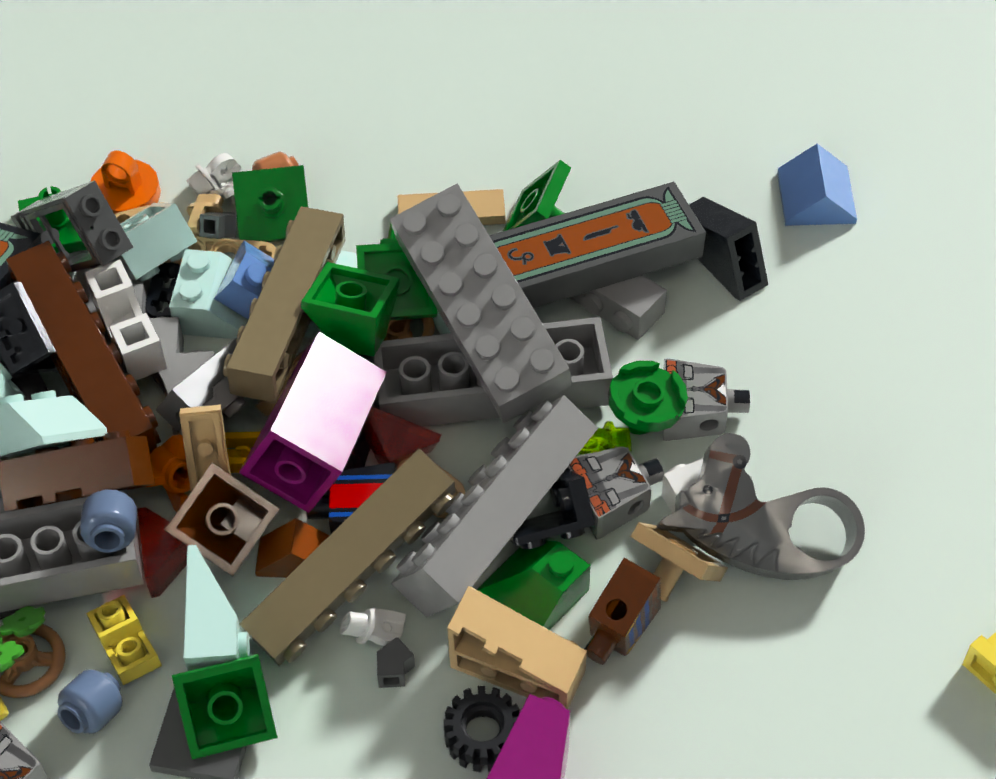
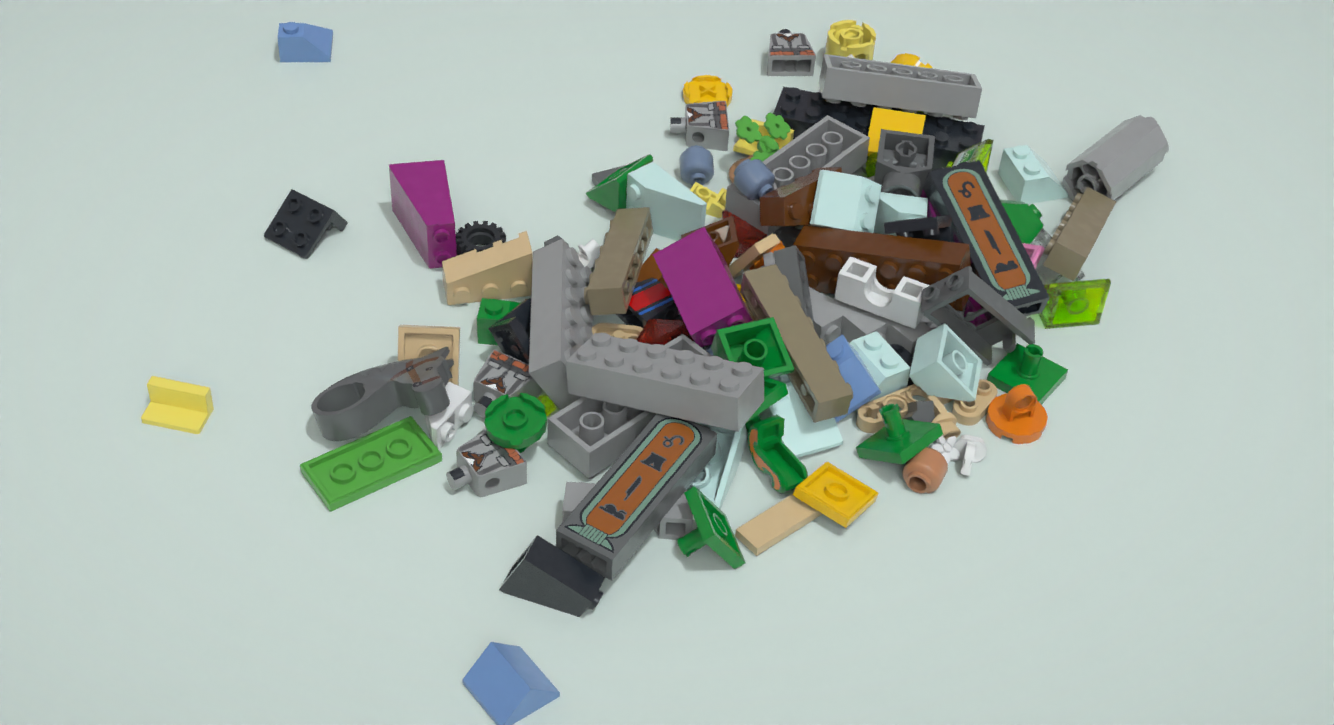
camera: 140 degrees right, 10 degrees down
(380, 195) = (835, 494): none -> yellow tile
(623, 611) = (440, 307): reddish brown torso -> none
(858, 472) = (370, 463): none -> bright green tile

